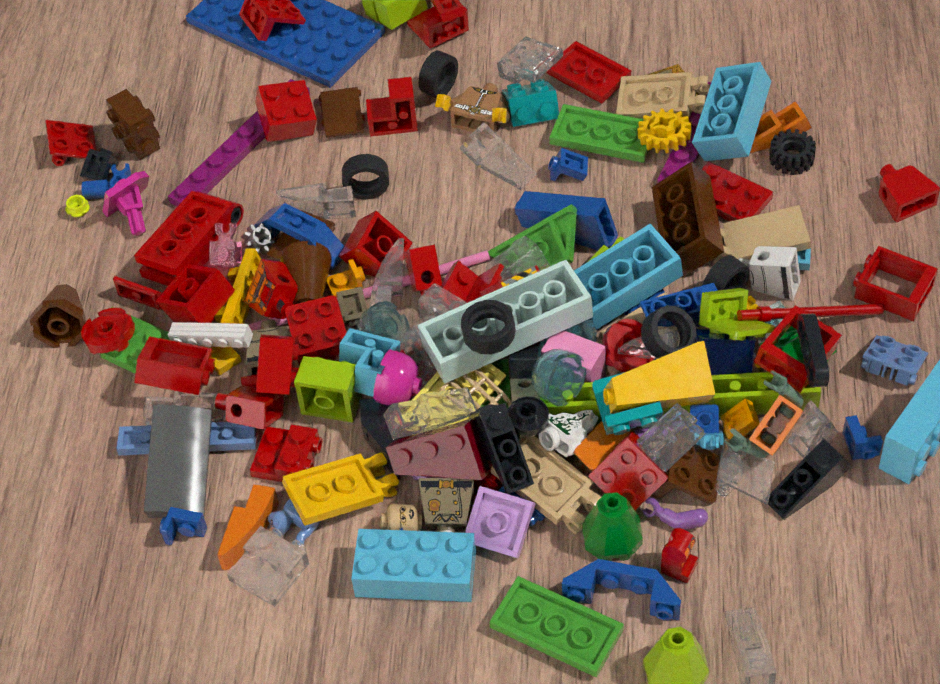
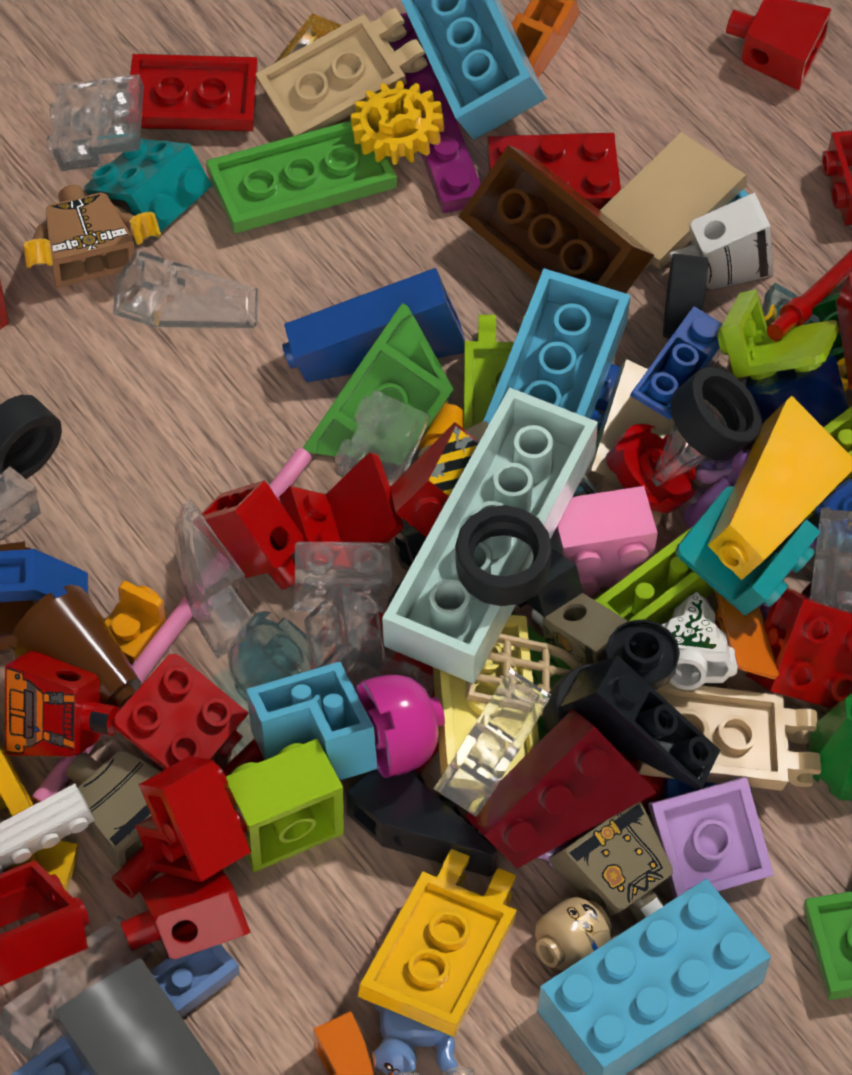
camera: 45 degrees left, 5 degrees up
(285, 452) = (301, 949): red plate -> none
(351, 305) = (182, 639): dark tan bracket -> none
(371, 242) = (125, 539): red slope -> none
(558, 376) = (622, 569): clear light blue cylinder -> none
(569, 164) = (296, 249): blue bracket -> none
(788, 161) = (586, 44): black tyre -> none

